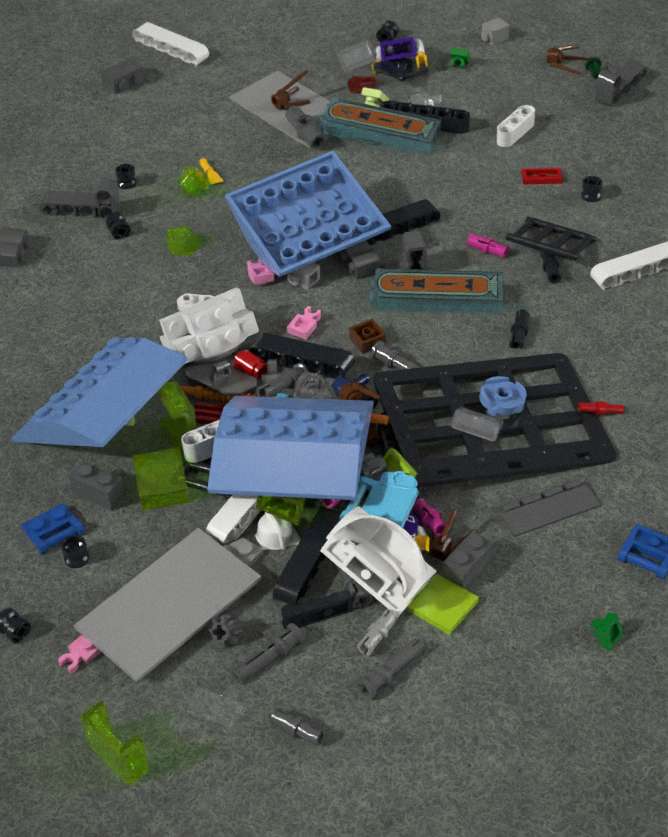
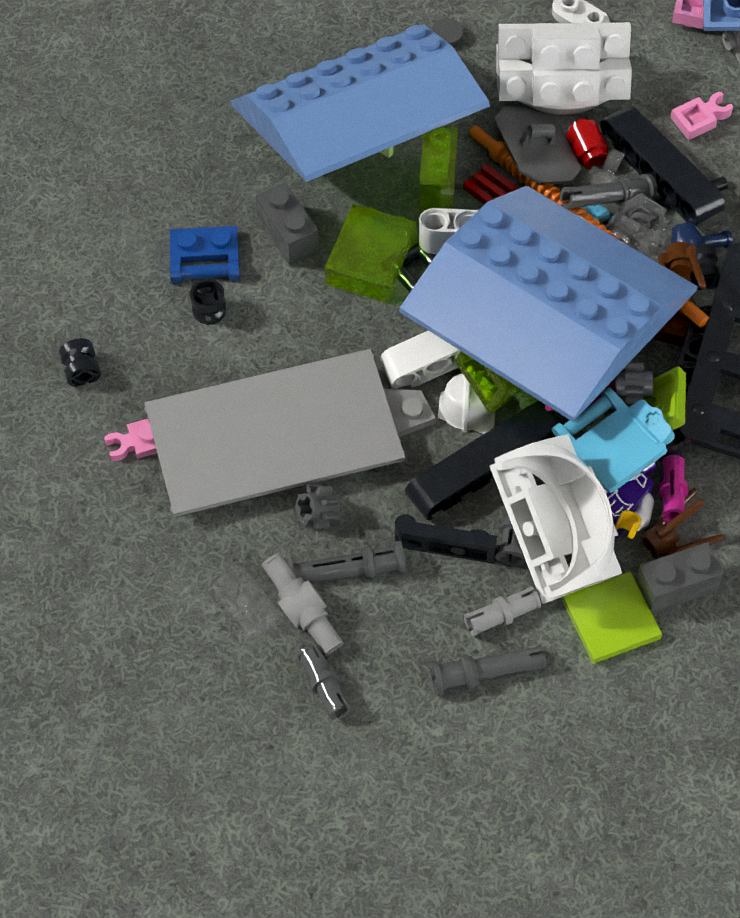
camera: 30 degrees right, 15 degrees up
(125, 759) = (97, 612): clear neon green panel -> none
(254, 689) = (302, 604): none -> light grey pin

